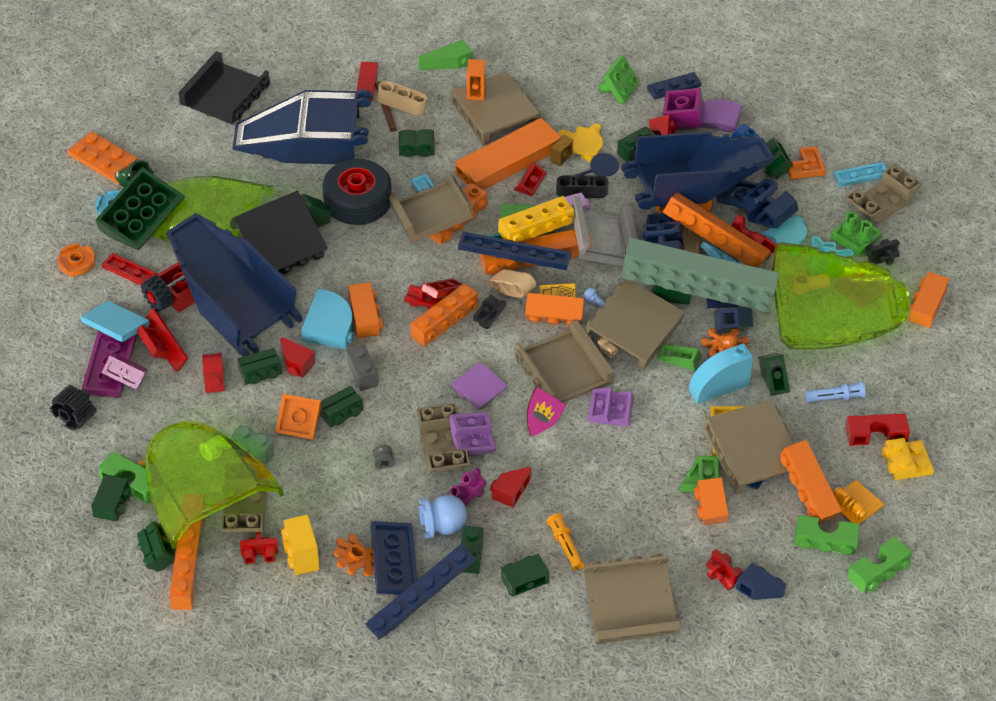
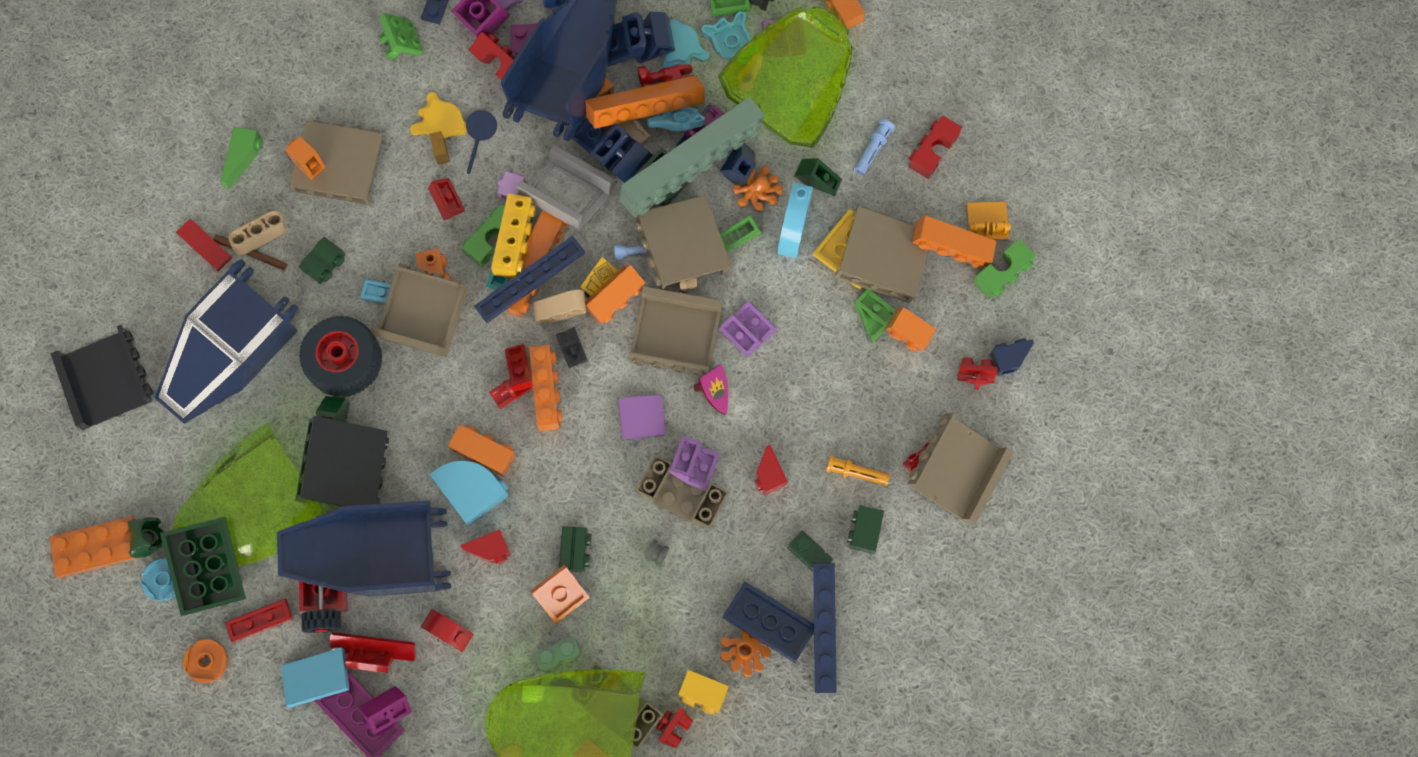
camera: 50 degrees left, 25 degrees up
(259, 366) = (473, 585): dark green brick -> none
(362, 368) = (547, 500): dark grey brick -> none
(444, 515) = (762, 551): light blue tile -> none
(471, 486) = (747, 509): magenta hips -> none
(507, 155) = (405, 195): orange brick -> none
(589, 185) = (495, 155): black beam -> none
(627, 145) = (485, 82): dark green brick -> none
(869, 575) = (1063, 237): bright green arch -> none
(906, 459) = (977, 149): yellow plate -> none

